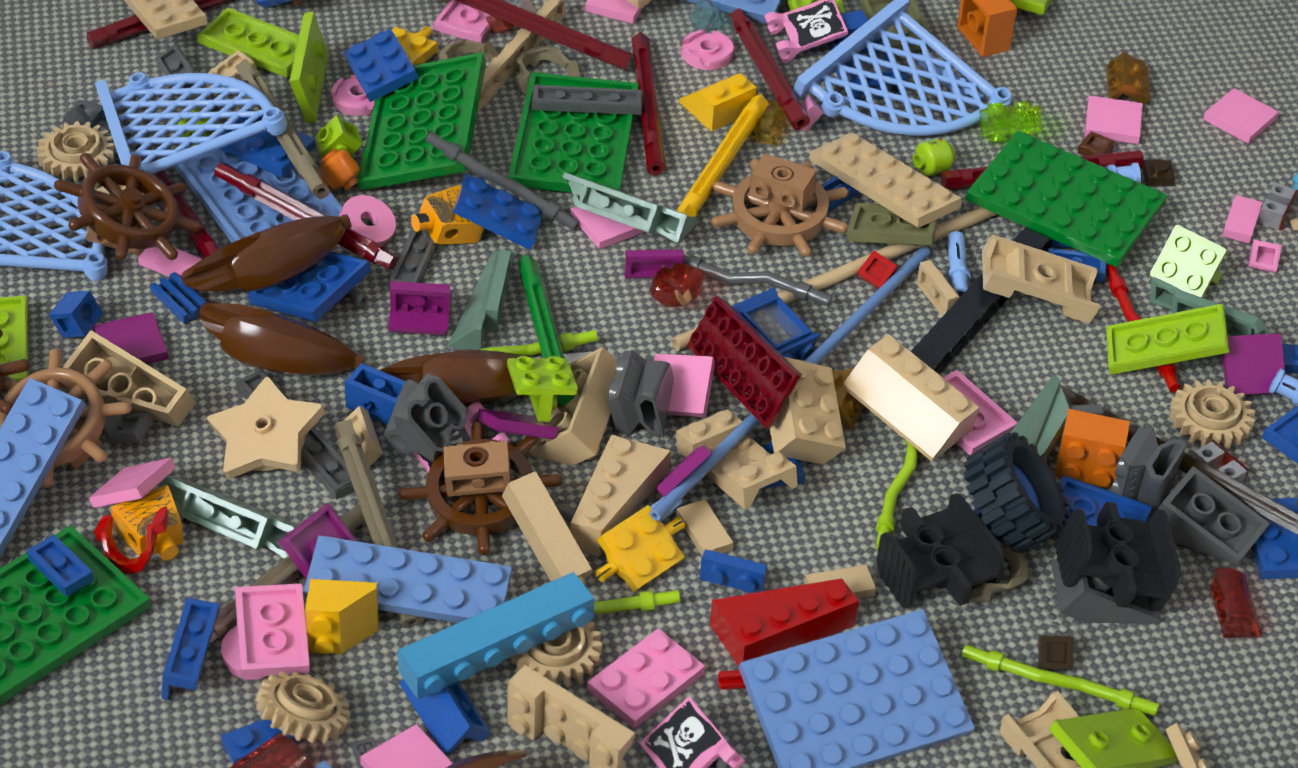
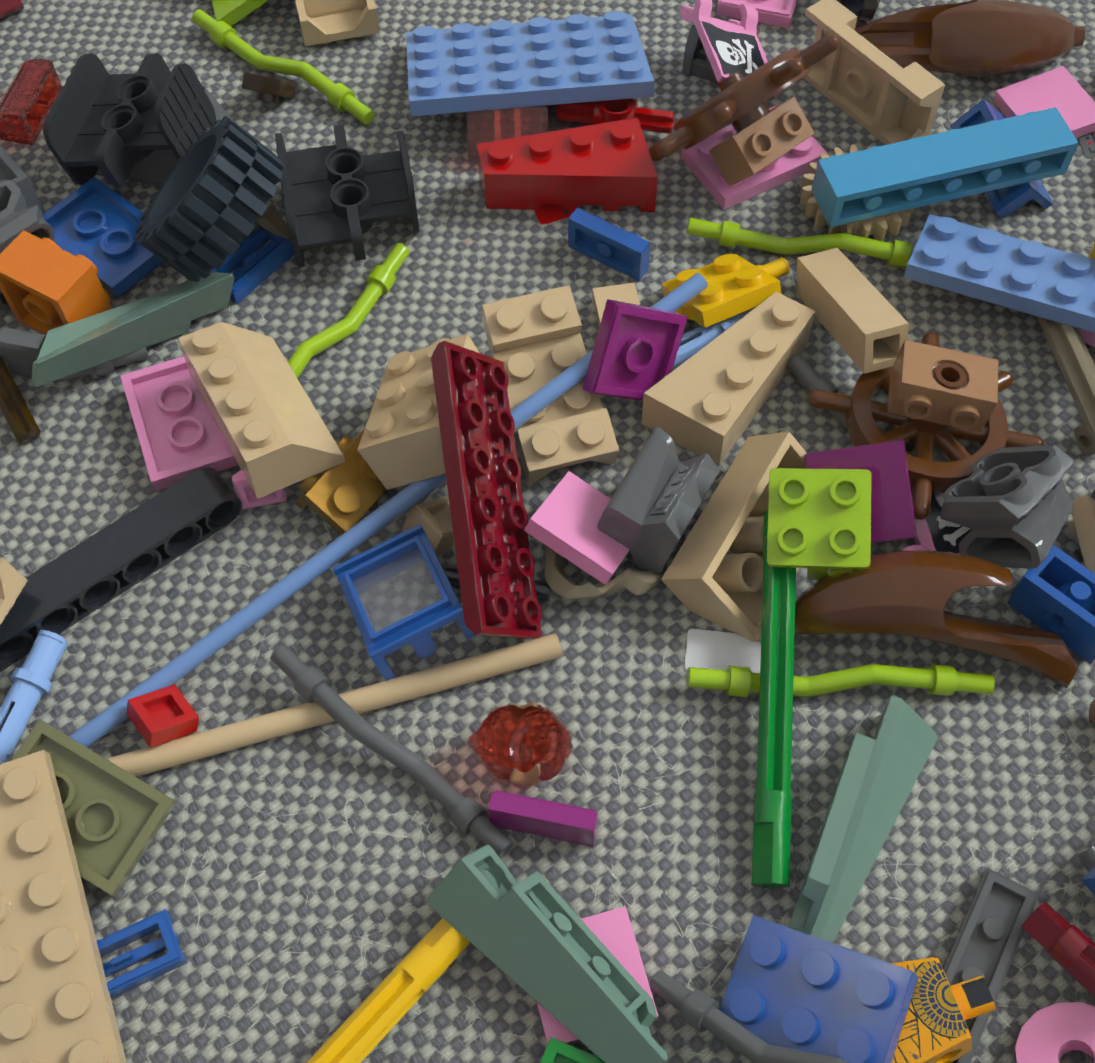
camera: 160 degrees left, 15 degrees up
(419, 307) = (984, 812): magenta bracket -> none
(652, 629) = (760, 132): none -> brick
(781, 193) = (259, 909): medium nougat piece -> none
(856, 578) = (476, 218): tan tile -> none
(936, 287) = (85, 636): tan plate -> none

